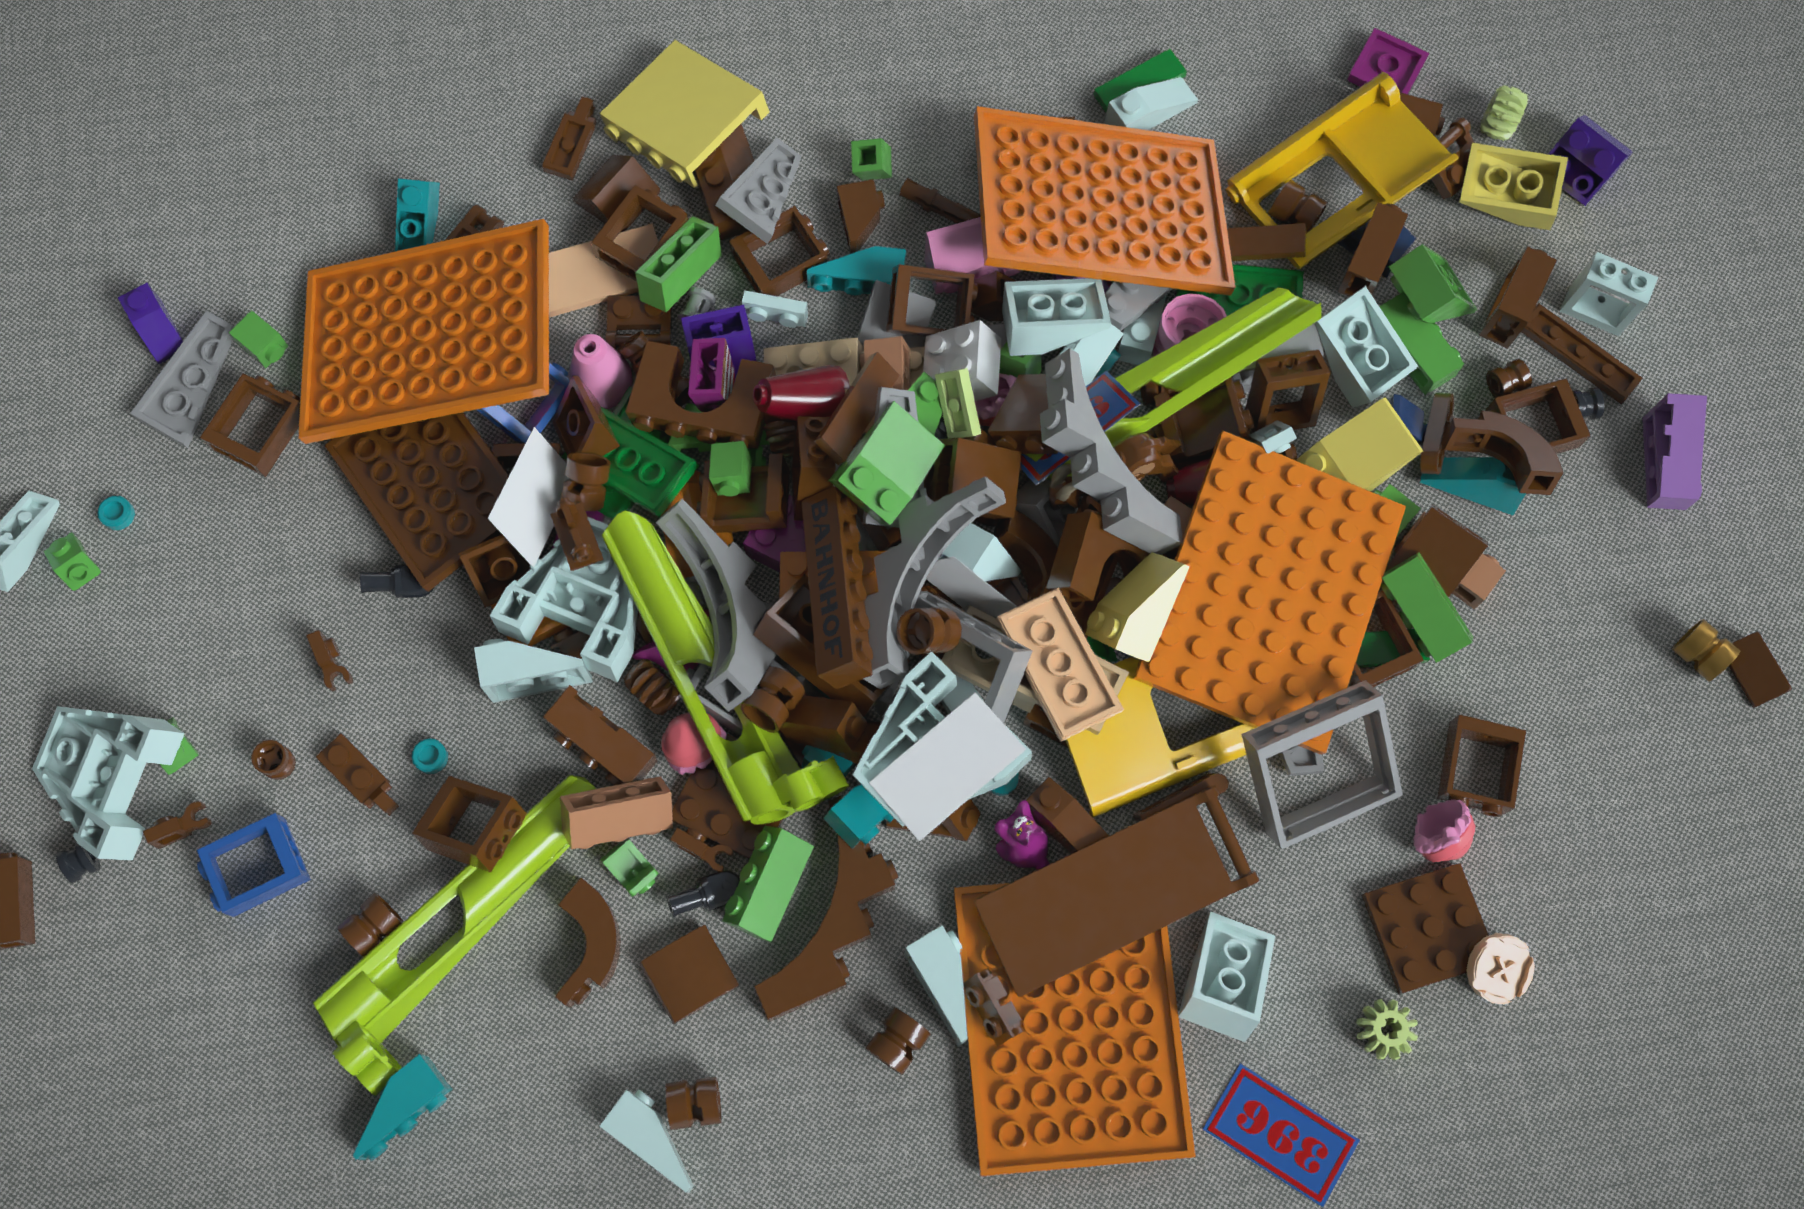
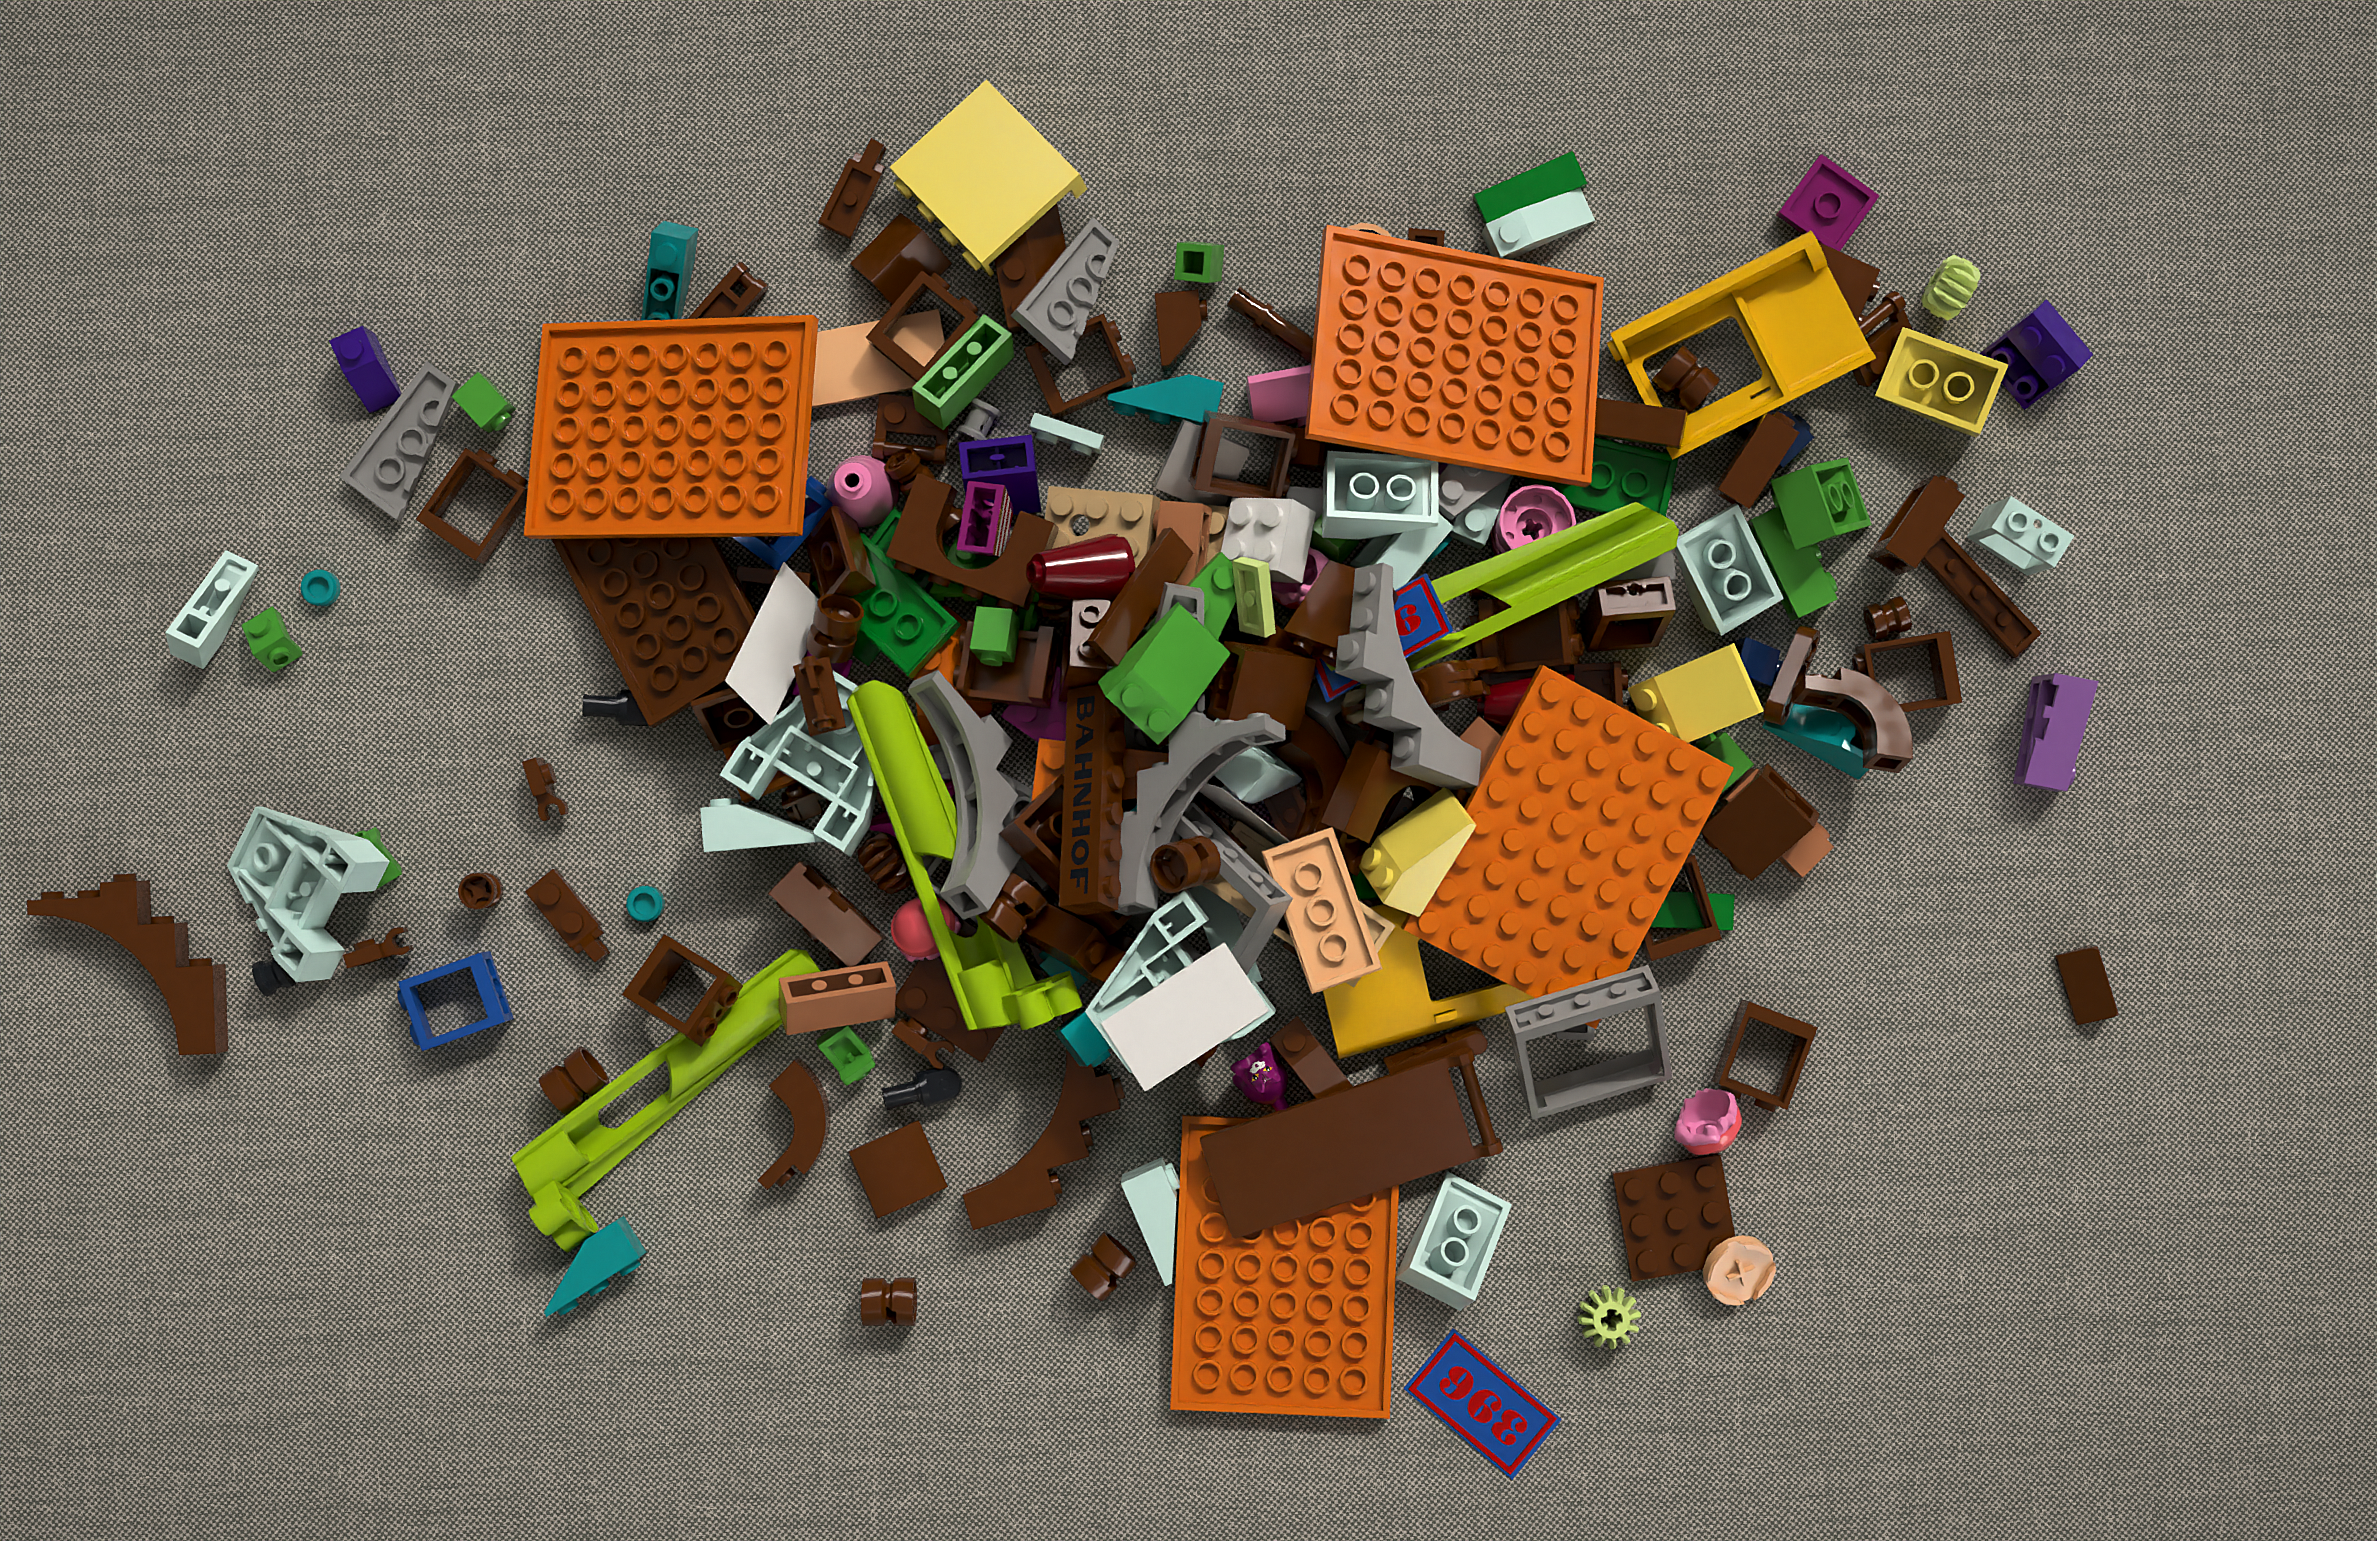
camera: 10 degrees right, 15 degrees up
(644, 1133) = (836, 1324): light aqua slope -> none
(767, 883) = (987, 1088): bright green brick -> none
(999, 1021) = (1210, 1261): reddish brown hinge -> none
(1274, 437) = (1601, 670): light aqua plate -> none
(1426, 608) = (1736, 881): bright green brick -> none
(1590, 402) = (1970, 658): black wheel -> none
(1706, 650) = (2038, 963): pearl gold wheel -> none

